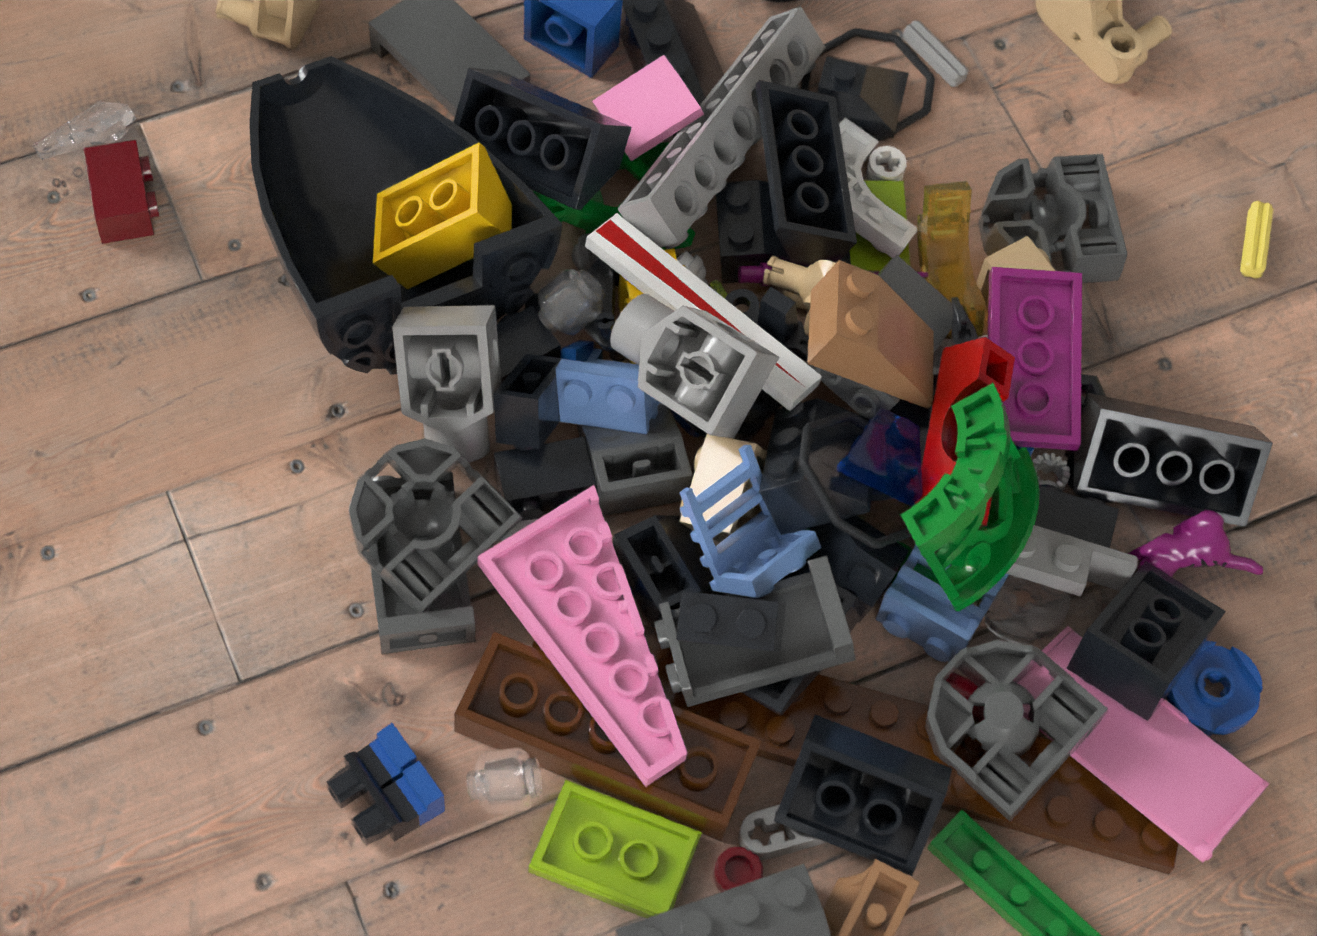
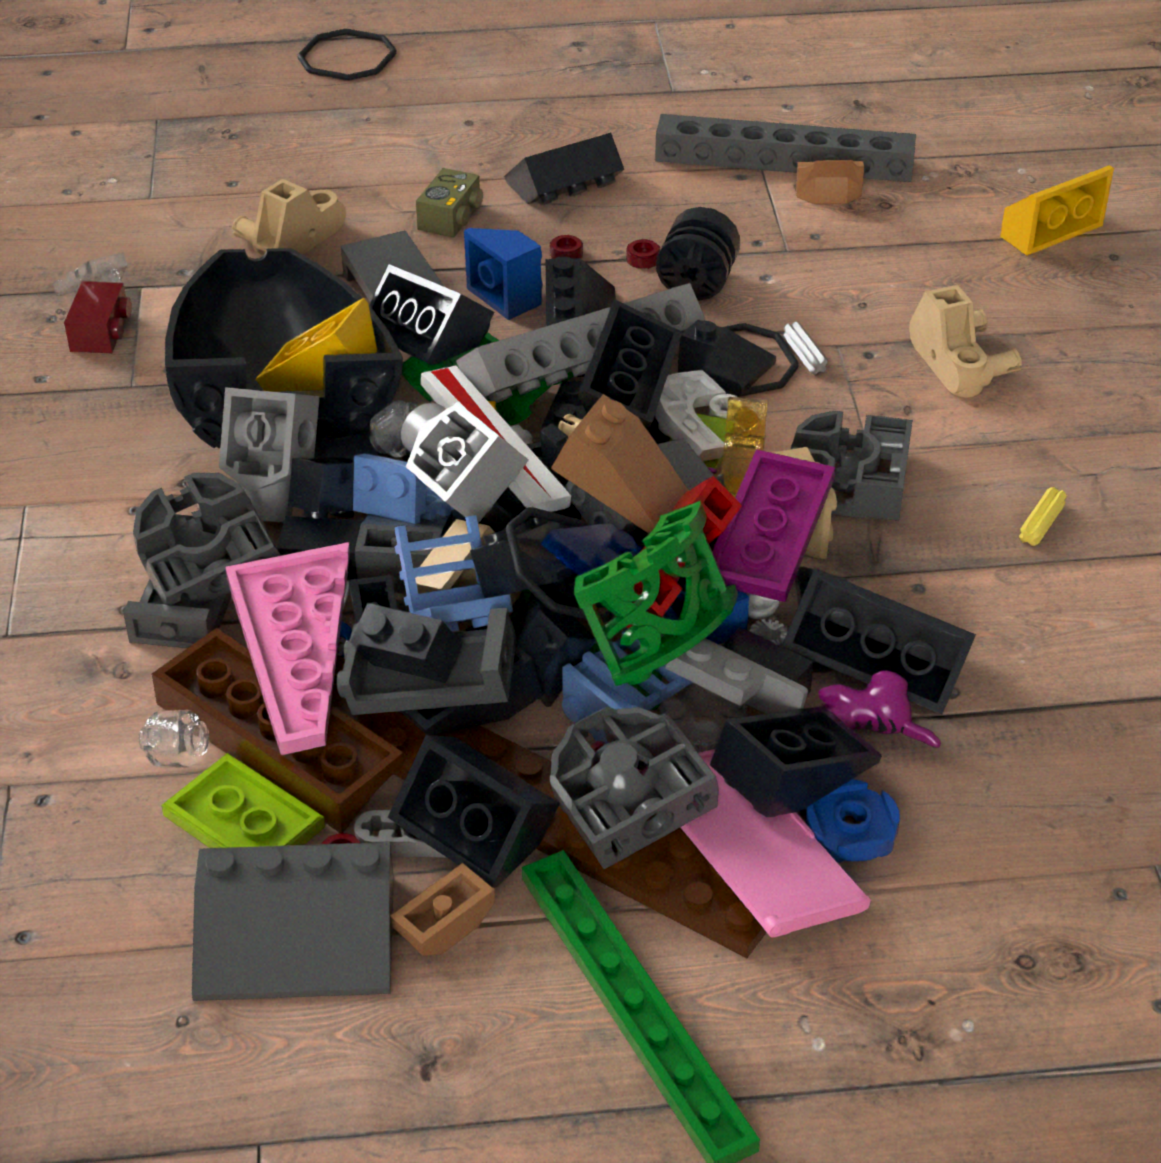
camera: 25 degrees right, 20 degrees down
(392, 784) = (80, 720): black hips -> none
(652, 103) = (527, 316): bright pink slope -> none

